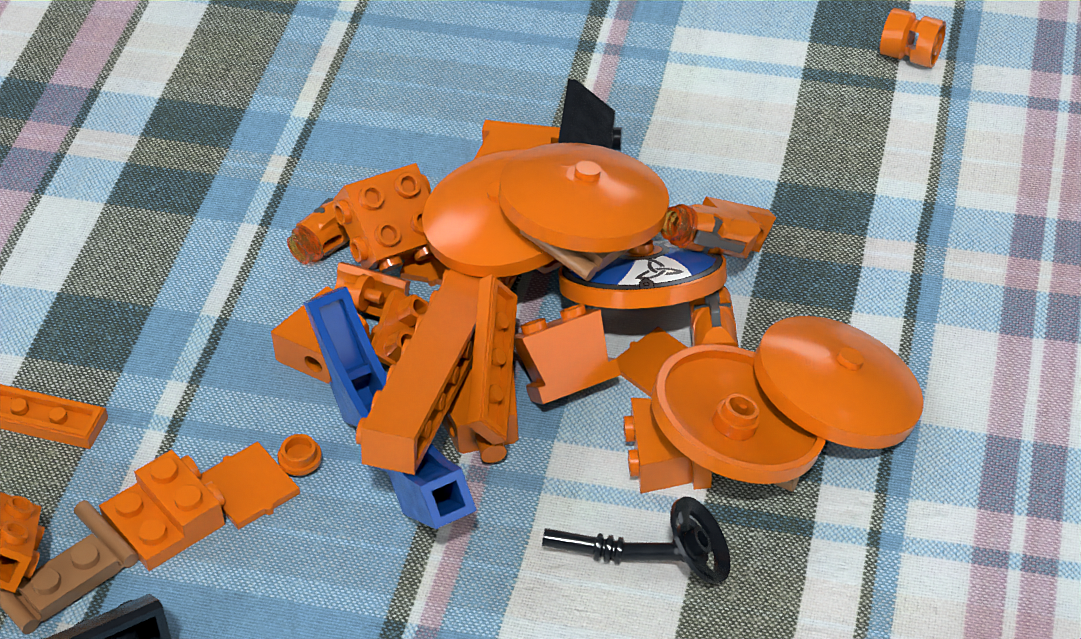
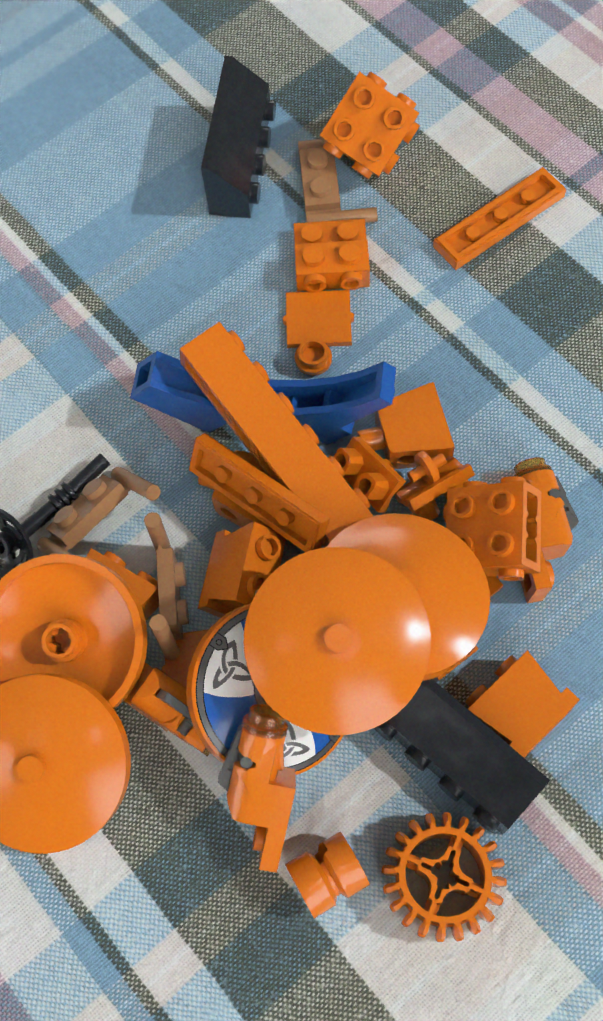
camera: 130 degrees right, 20 degrees up
(604, 417) = (171, 576): none -> medium nougat plate
(607, 509) = (94, 504): none -> medium nougat plate
(678, 138) = (464, 886): none -> orange gear
(754, 187) = (327, 874): none -> orange wheel

